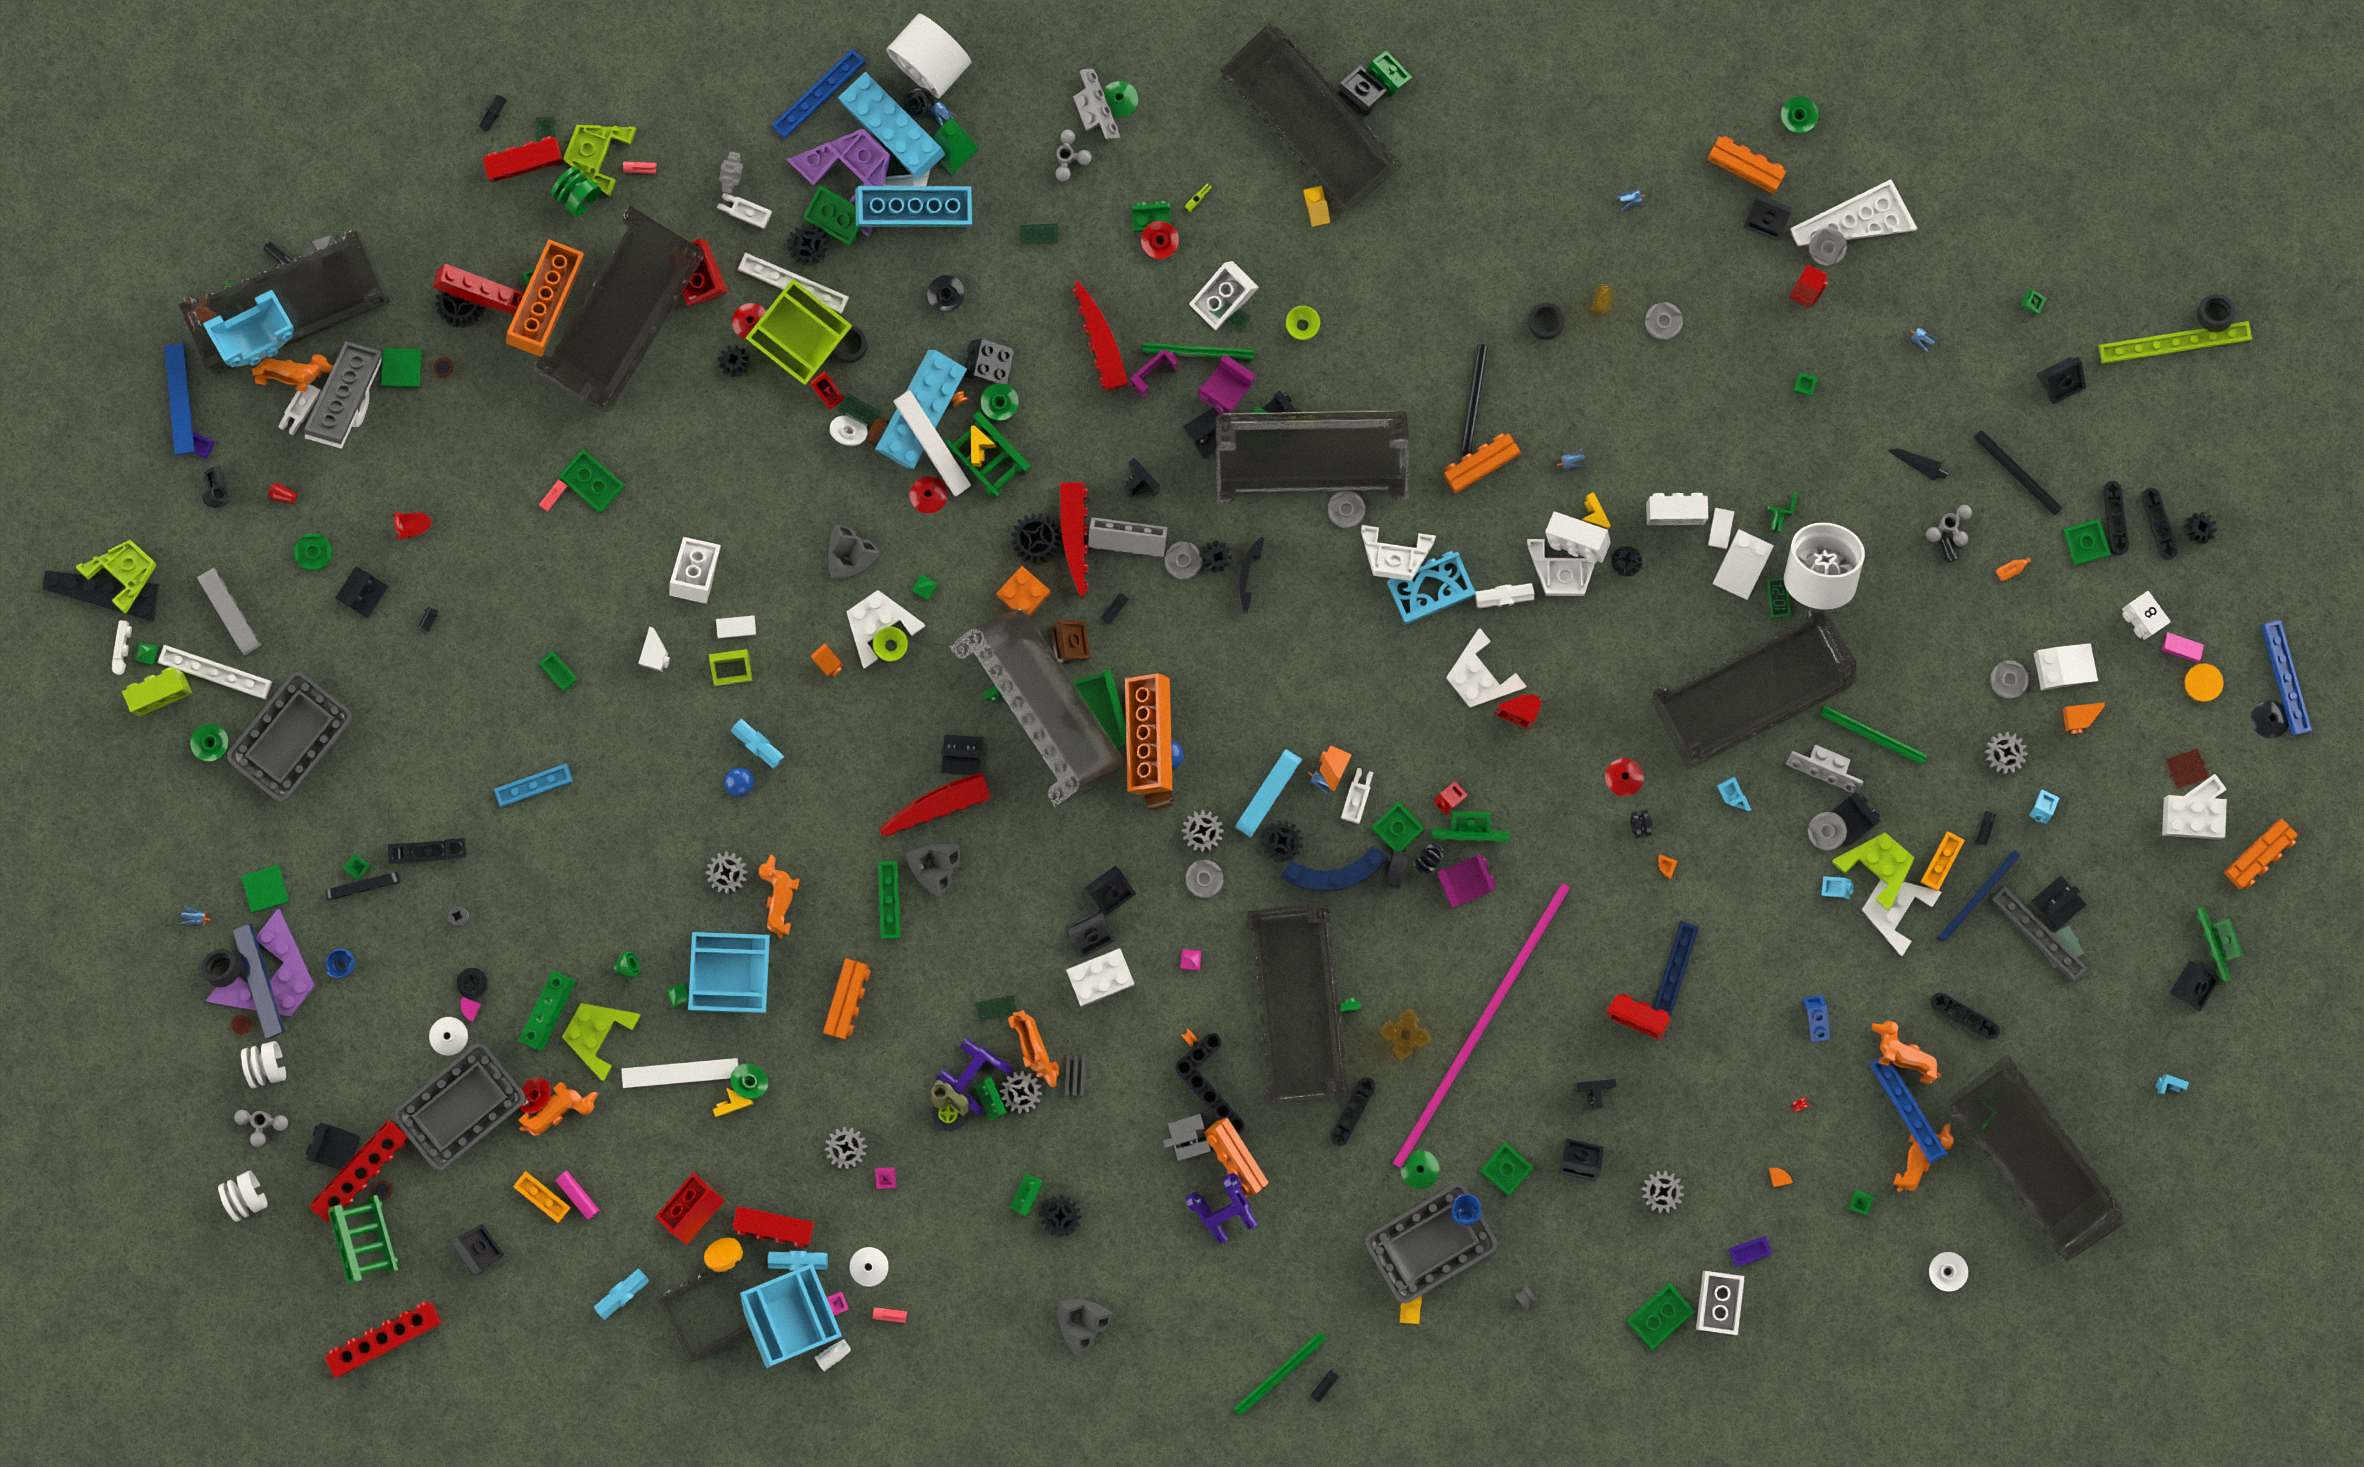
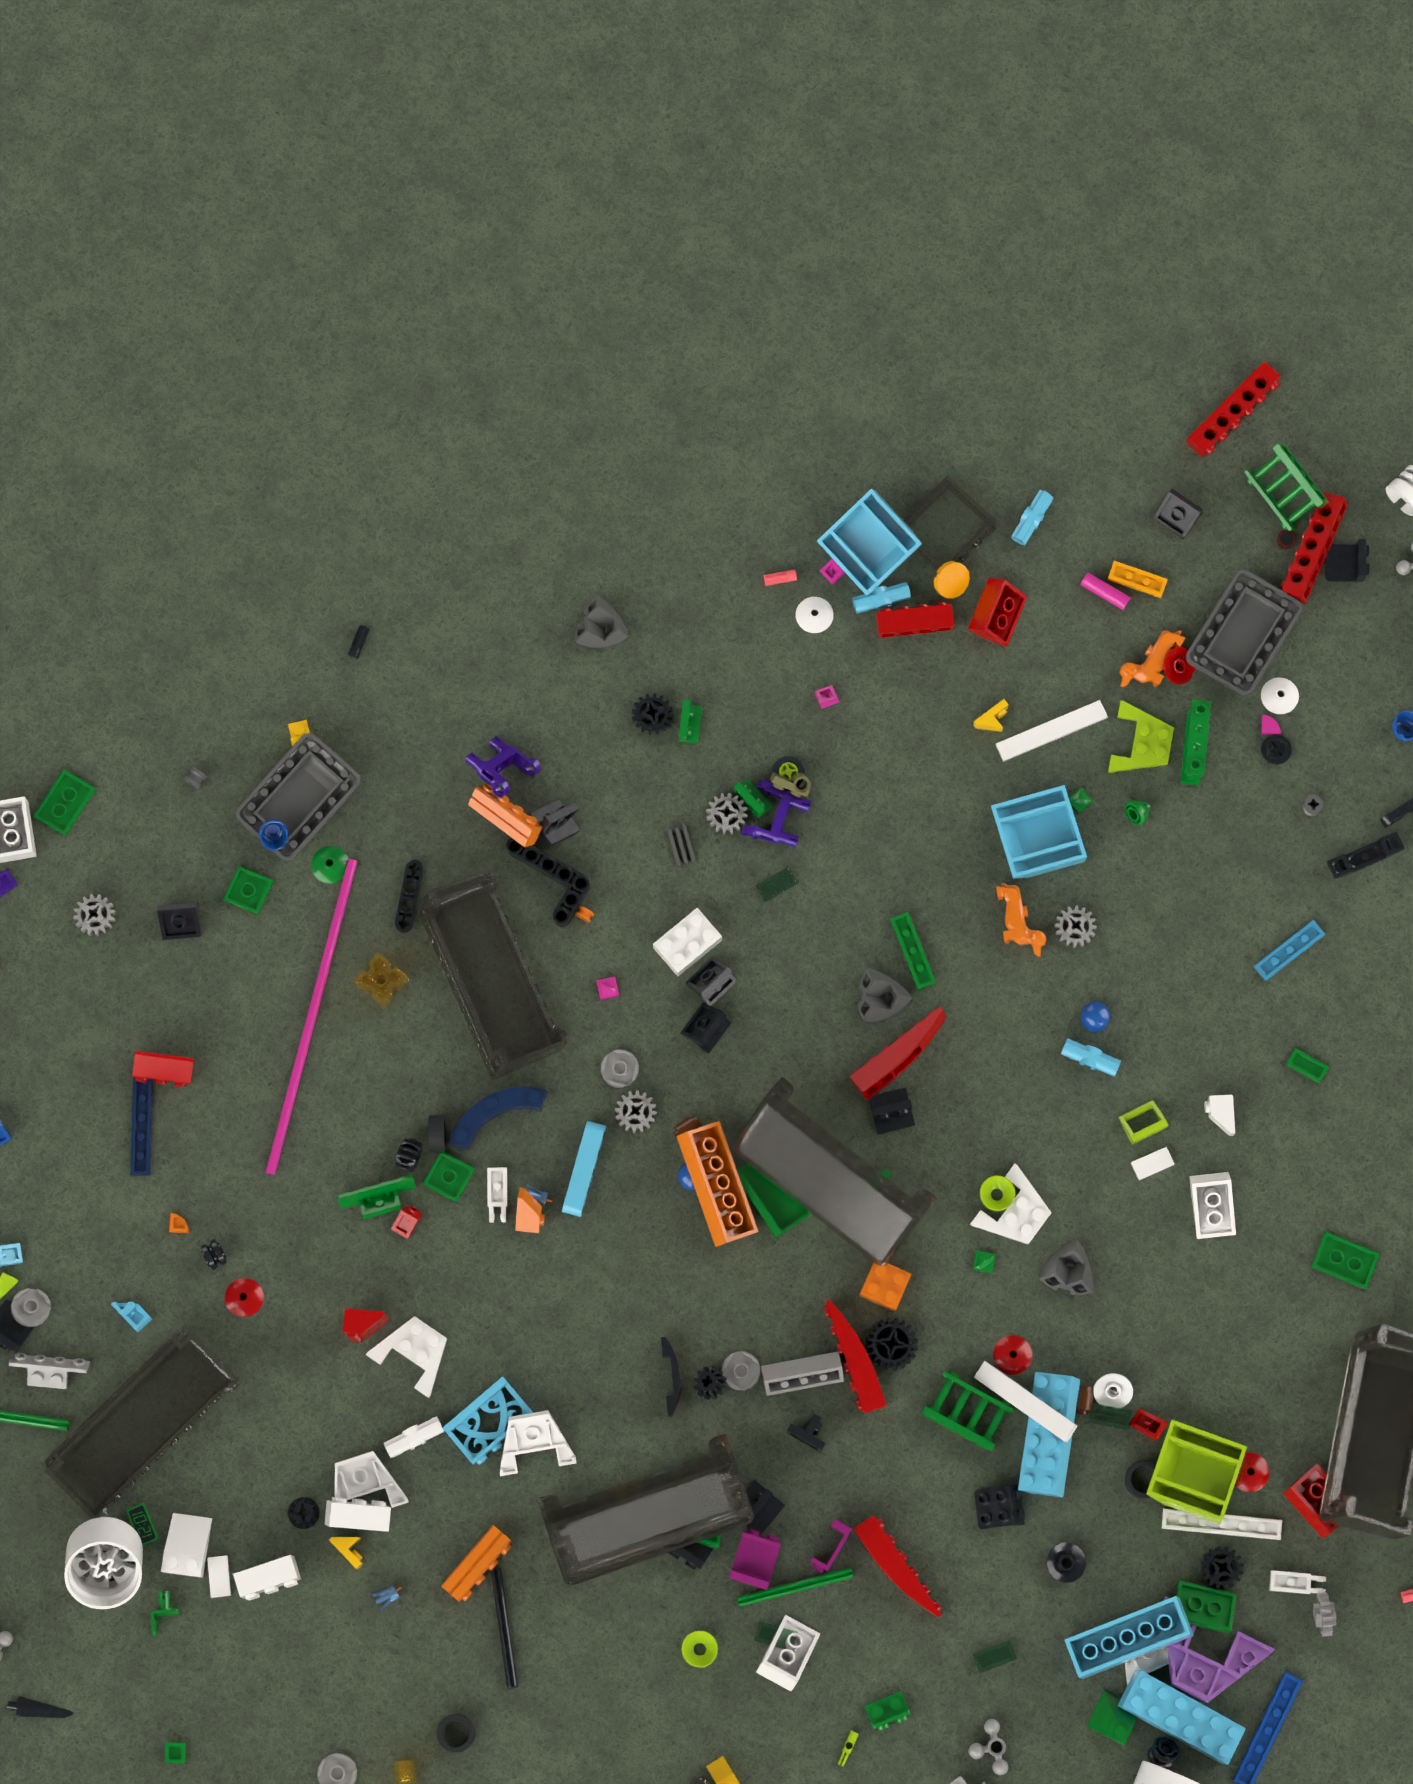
camera: 160 degrees right, 5 degrees down
(553, 495) = (1377, 1234): coral piece -> none
(729, 367) = (1244, 1422): black gear -> none
(751, 1074) = (982, 750): green dish -> none
(827, 661) = (1051, 1156): orange slope -> none
(832, 1354) = (820, 525): white hinge -> none
(843, 1156) = (864, 711): light grey gear -> none
(845, 999) = (920, 845): orange brick -> none
(939, 110) = (1138, 1751): flat silver piece -> none
(958, 399) = (1015, 1459): orange bush -> none
(979, 441) = (981, 1419): yellow slope -> none
(999, 392) = (982, 1462): green dish -> none
(1033, 1047) = (729, 856): orange animal -> none
(1070, 641) = (823, 1253): reddish brown bracket -> none
(1114, 608) = (792, 1301): black piece -> none
(1156, 230) = (871, 1678): red dish -> none
(1279, 1374) = (402, 640): green axle -> none
(1290, 836) = (564, 1116): black gear -> none
(1350, 1005) = (442, 992): green plate -> none
(1351, 511) = (596, 1474): light grey tile -> none
(1466, 881) = (367, 1146): magenta panel -> none
(1595, 1097) = (186, 987): black bracket -> none

